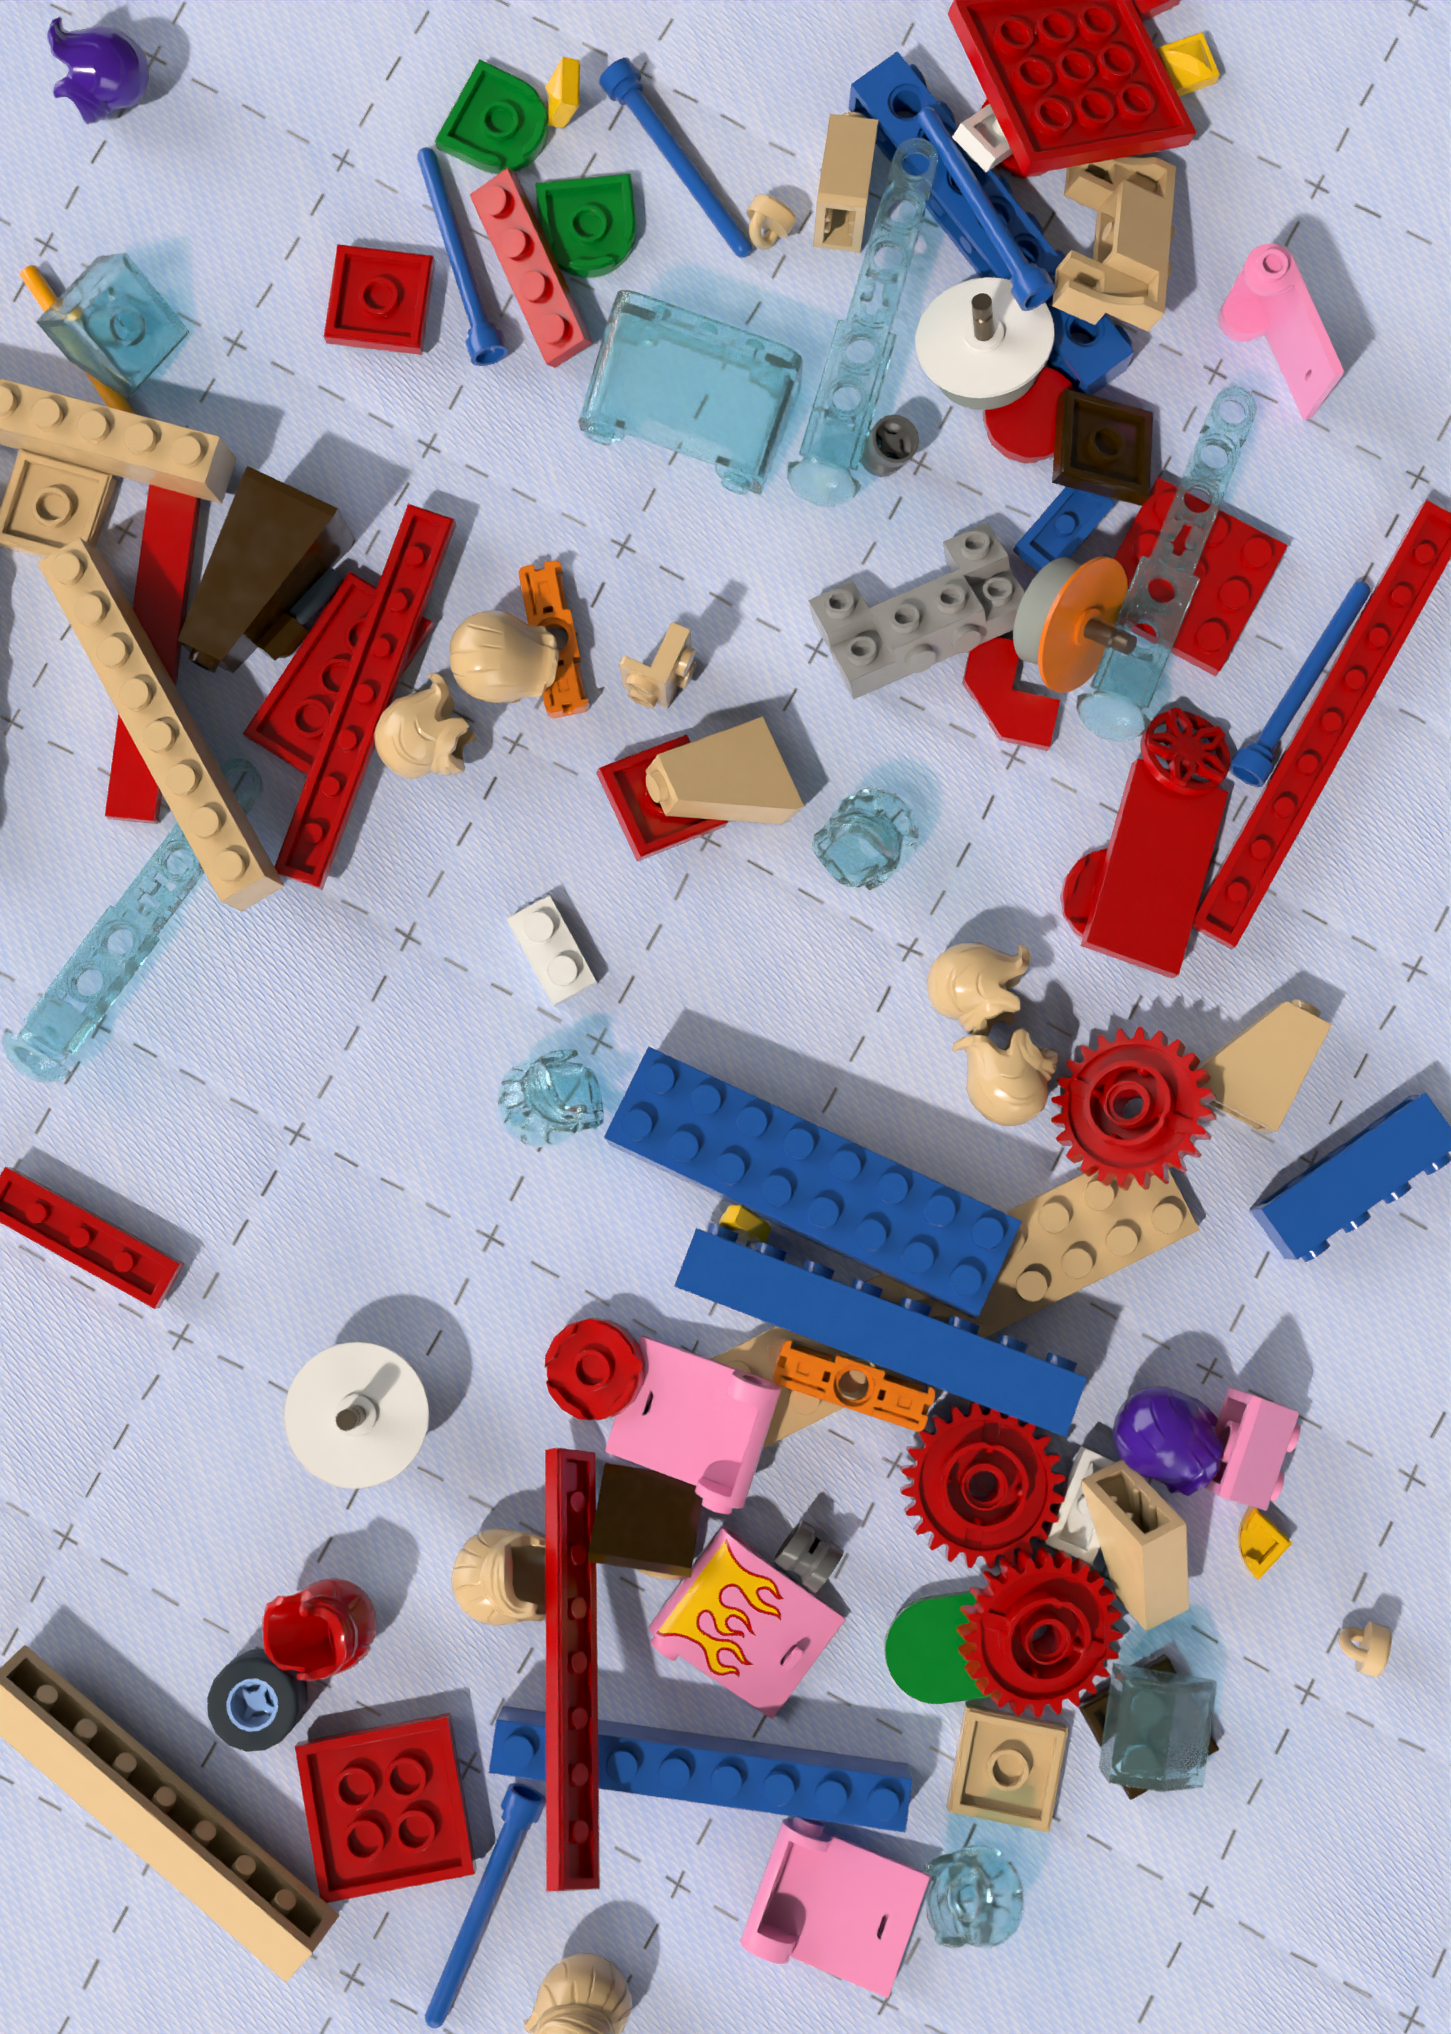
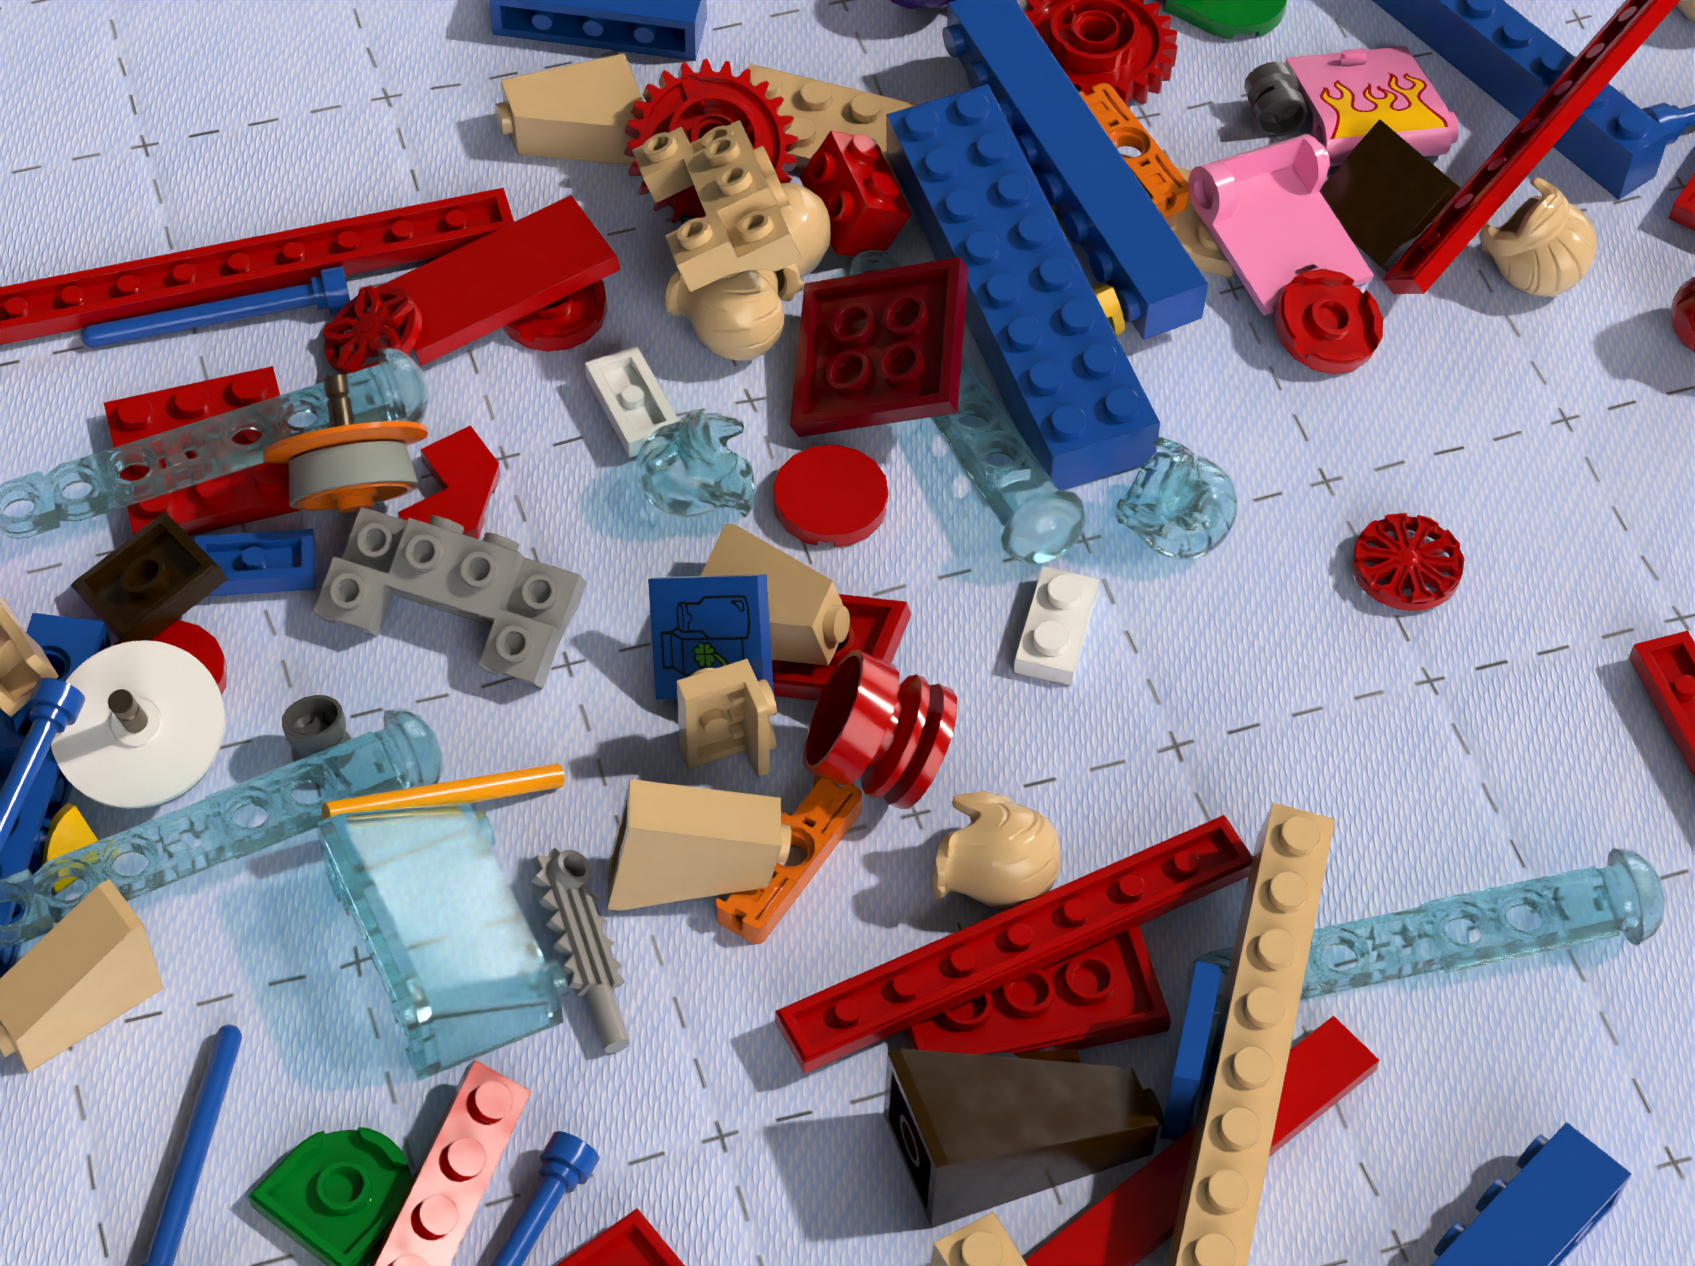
camera: 140 degrees left, 30 degrees down
(197, 699) = (1191, 1050): none -> blue tile
(356, 1415) = (1565, 416): white piece -> none
(378, 1209) = (1408, 562): none -> red wheel
(502, 657) = (858, 850): tan hair -> none
(557, 735) = (880, 730): none -> red wheel
(590, 569) = (692, 844): none -> tan slope
(609, 472) = (588, 962): none -> light grey piece
(645, 1010) = (1036, 515): none -> clear light blue piece
(724, 710) = (708, 625): none -> blue tile
(770, 216) = (176, 1025): tan tile -> none
(774, 472) = (456, 791): none -> light orange bar
(780, 915) = (830, 495): none -> red tile
(846, 1038) = (880, 347): none -> dark red plate
(948, 258) = (66, 833): none -> yellow tile
(971, 863) = (629, 396): none -> white plate
(997, 1164) = (857, 192): none -> red brick
(1038, 1032) = (739, 200): none -> tan bracket

